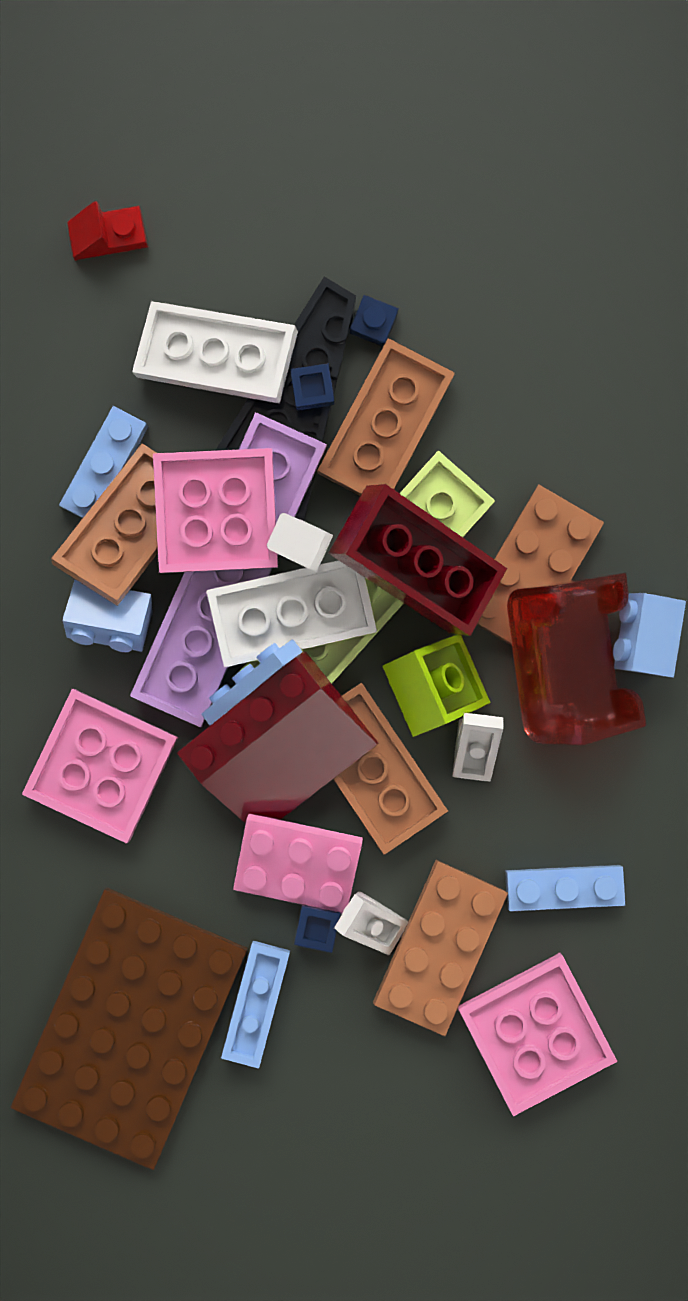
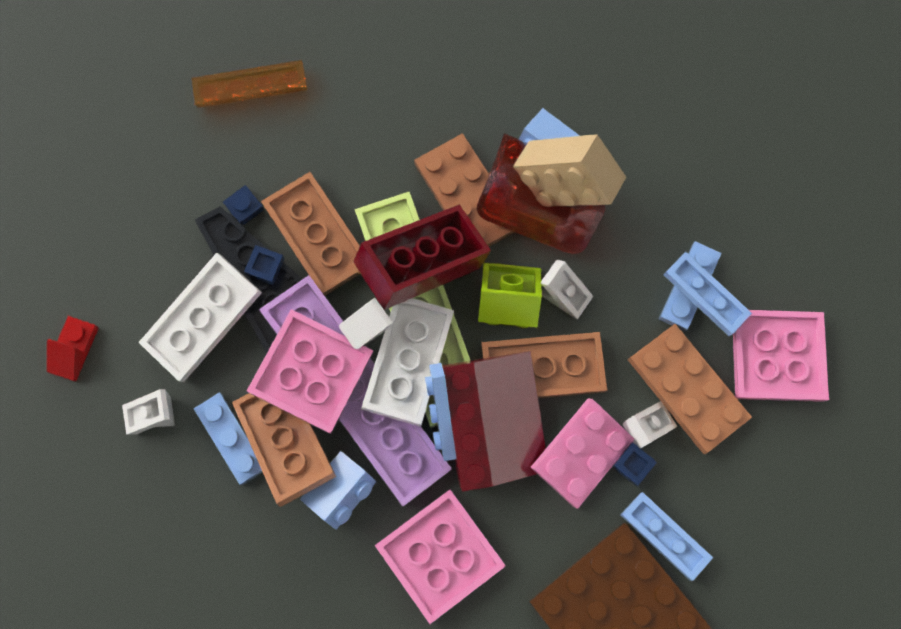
camera: 60 degrees left, 10 degrees down
(81, 361) = (148, 412): none -> white slope
(524, 239) = (249, 83): none -> clear orange plate
(561, 914) = (707, 294): none -> light blue plate
(614, 677) = (570, 171): none -> tan brick

